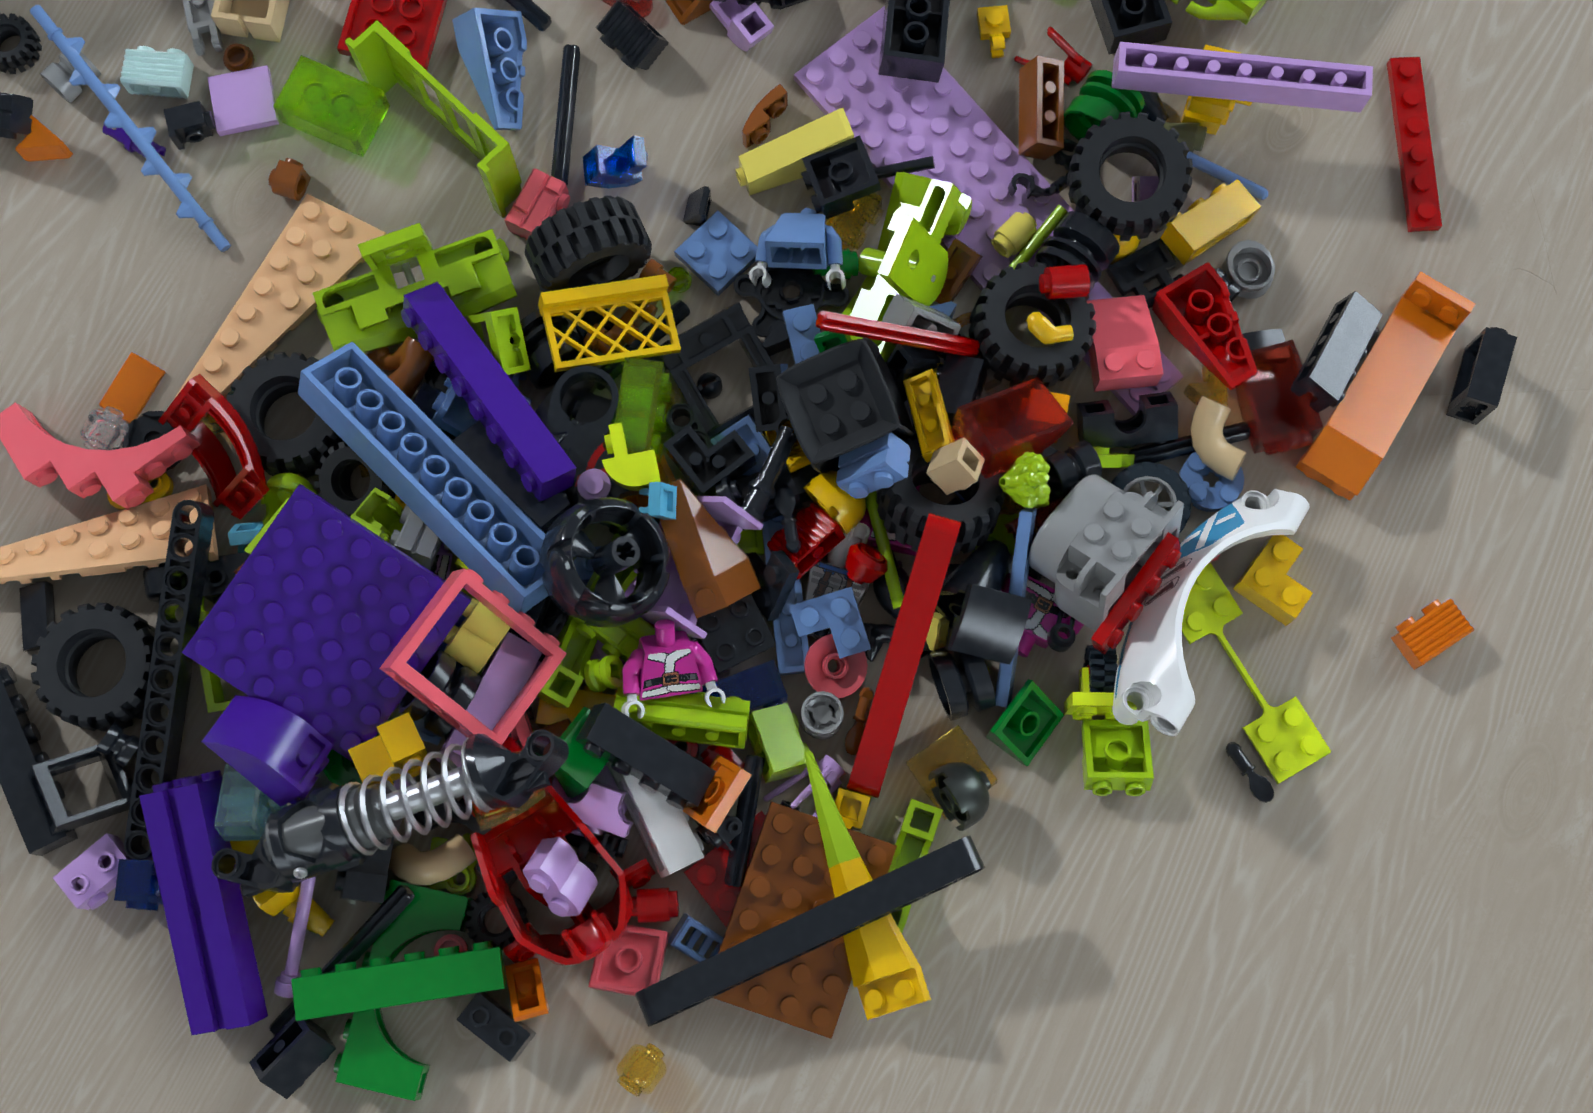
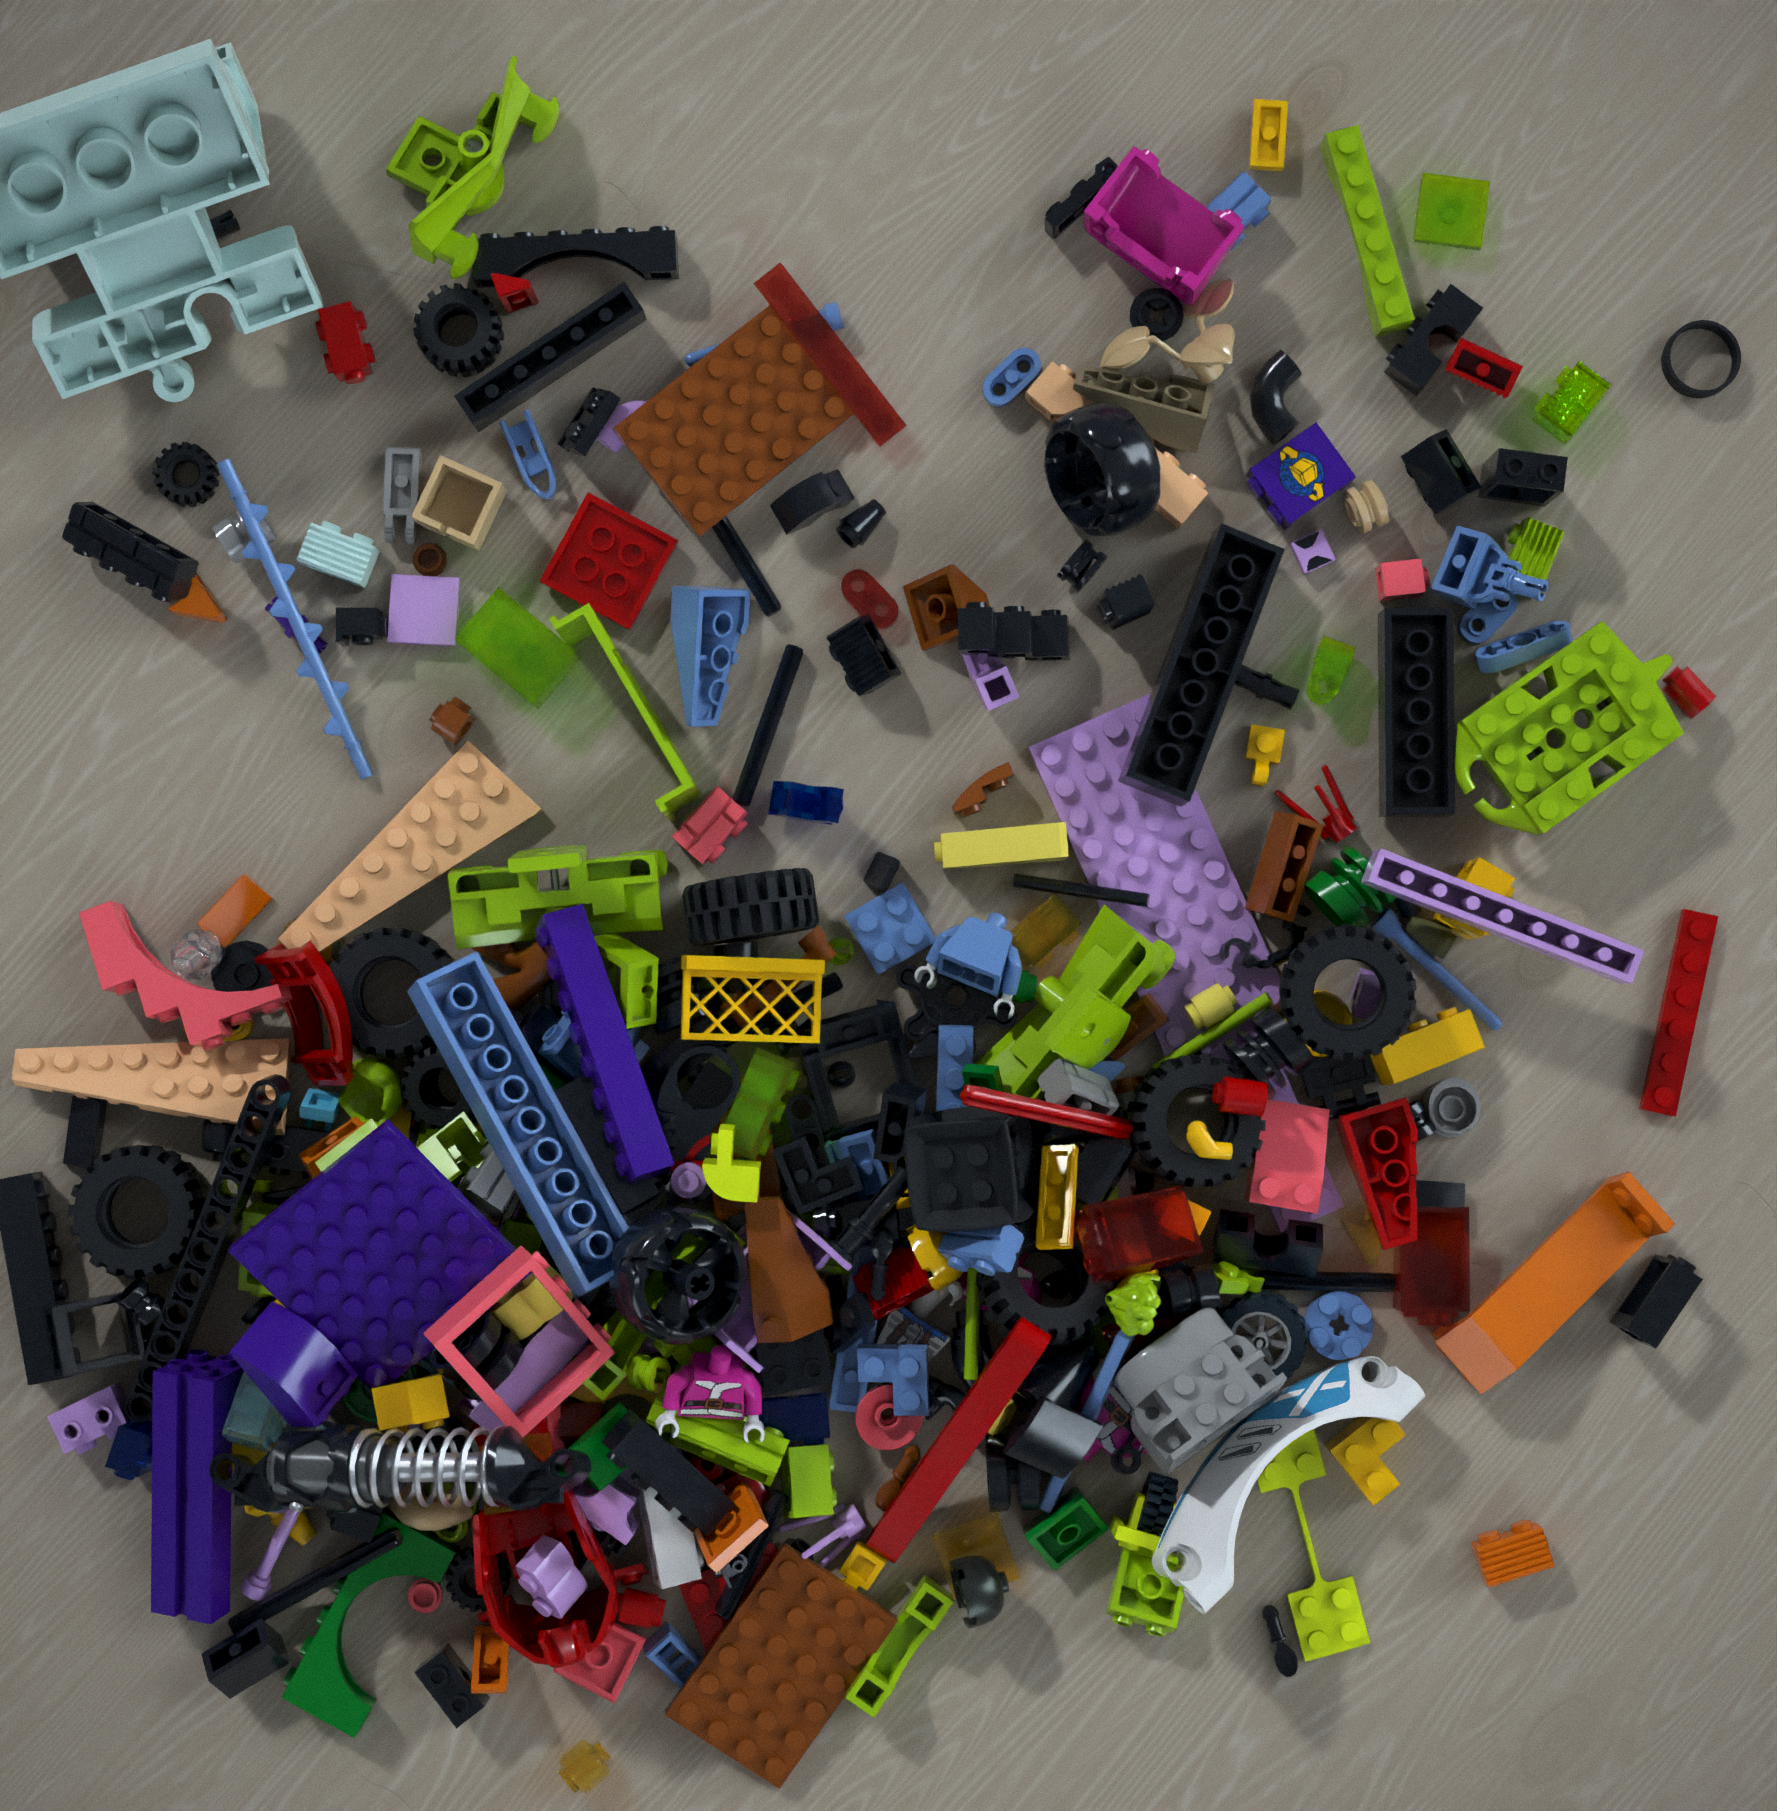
camera: 15 degrees right, 10 degrees up
(398, 982) = (367, 1621): green brick -> none
(661, 500) = (752, 1221): medium azure tile -> none
(809, 930) = (785, 1692): black beam -> none
(822, 715) = (860, 1466): light grey wheel -> none
(839, 177) = (1041, 895): black plate -> none
(865, 563) = (947, 1327): red cone -> none
(876, 953) = (846, 1722): yellow plate -> none
(955, 466) = (1064, 1271): tan brick -> none
(1130, 603) = (1201, 1458): red plate -> none
(1210, 442) = (1346, 1294): tan cylinder -> none
(1337, 352) = (1511, 1233): brick -> none

